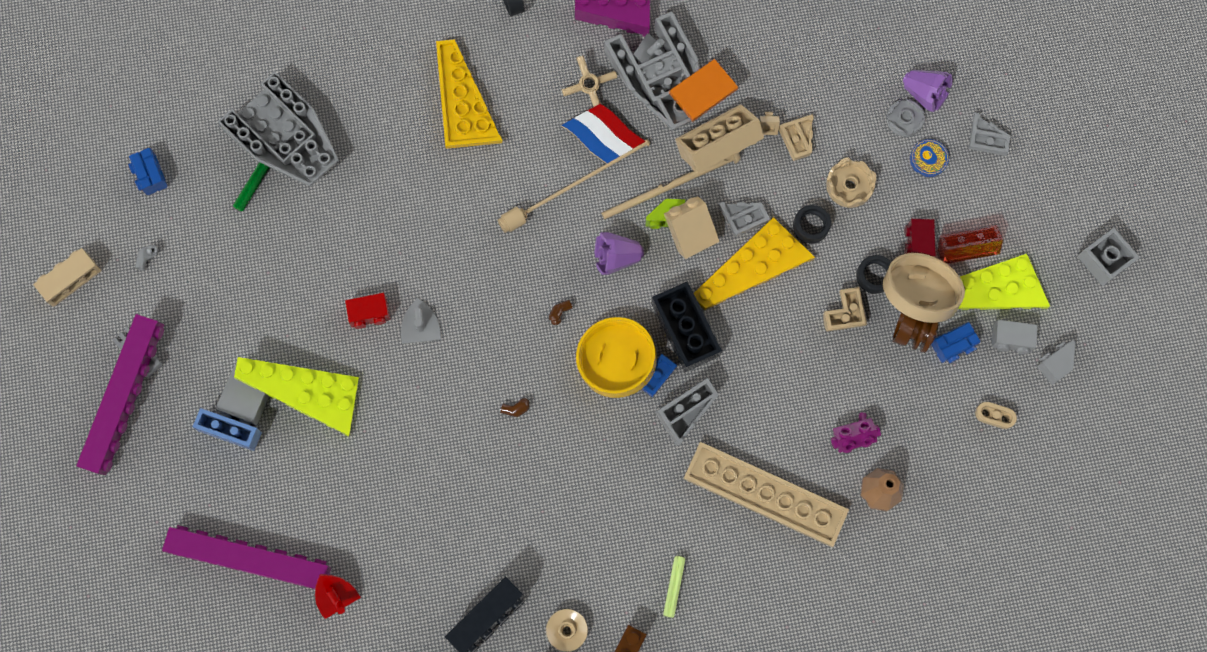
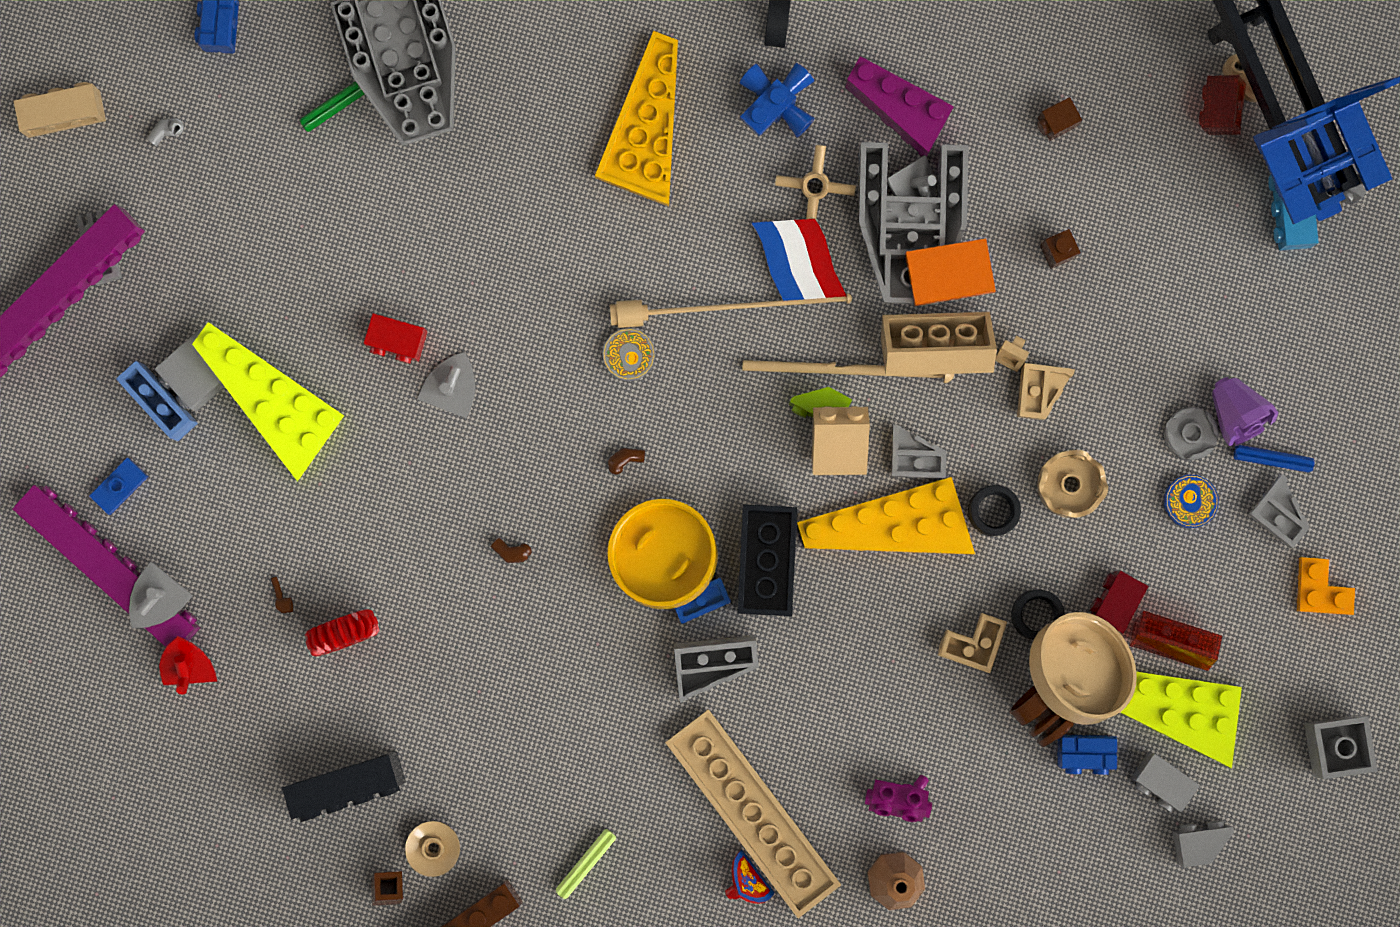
camera: 30 degrees right, 10 degrees up
(227, 501) = (119, 486): none -> blue plate
(291, 559) = (155, 598): none -> light grey shield
(380, 521) = (284, 605): none -> reddish brown hand
(431, 516) = (342, 632): none -> red gear
(526, 245) = (629, 354): none -> tile
(537, 44) = (776, 100): none -> blue brick
(616, 252) = (732, 423): medium lavender cone -> none
(762, 47) = (1060, 249): none -> reddish brown brick
(787, 540) = (748, 881): none -> shield
(964, 107) = (1273, 458): none -> blue axle
(995, 415) = (1084, 865): tan plate -> none
(1038, 175) = (1316, 595): none -> light orange plate

